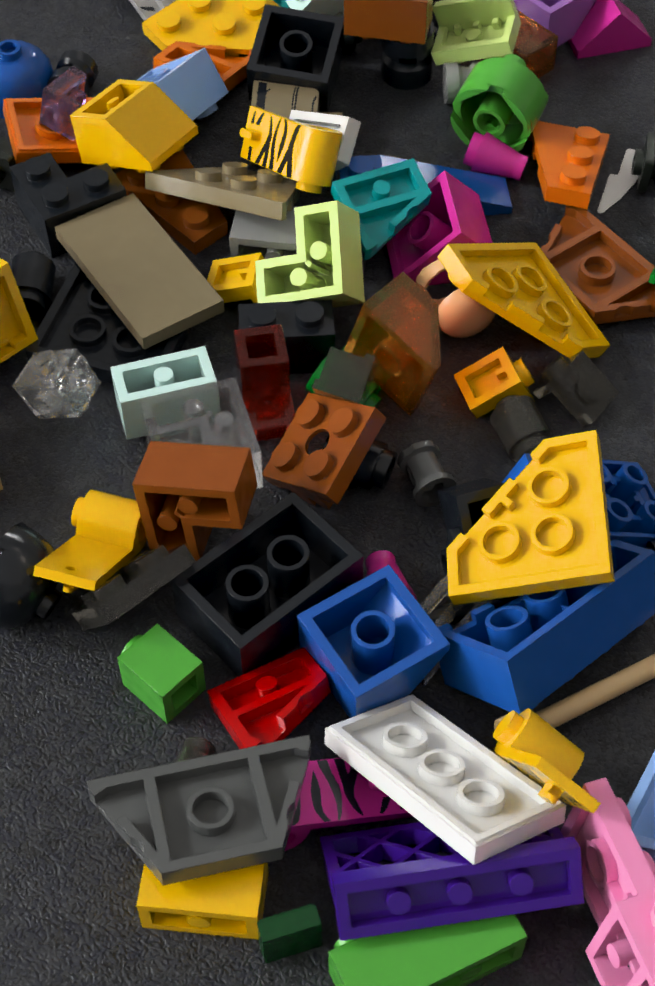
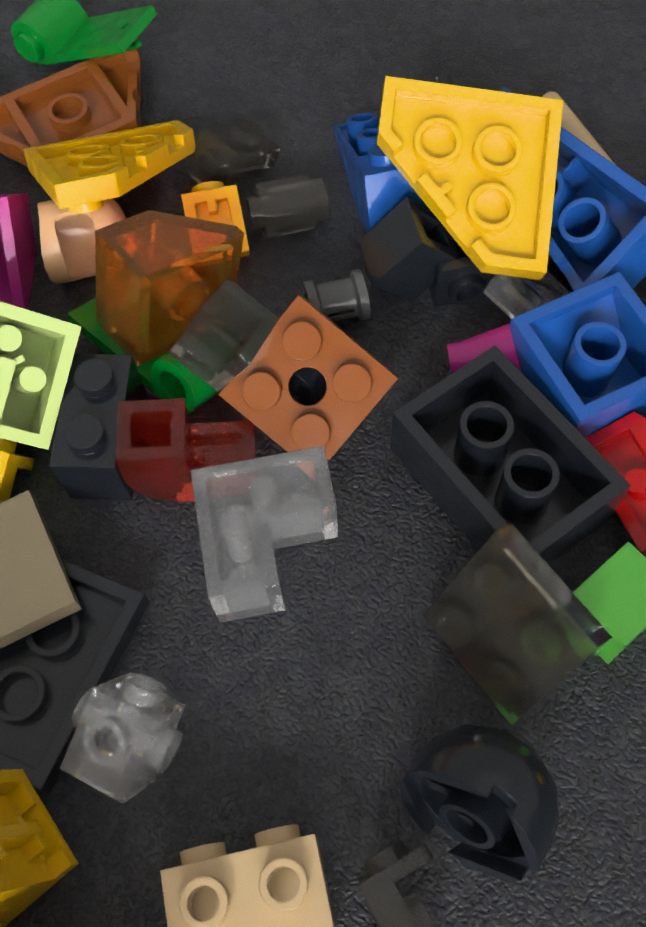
camera: 80 degrees left, 10 degrees up
(104, 541) = (439, 680): yellow door -> none
(156, 377) = (170, 579): light aqua brick -> none
(192, 489) = (384, 524): dark orange brick -> none

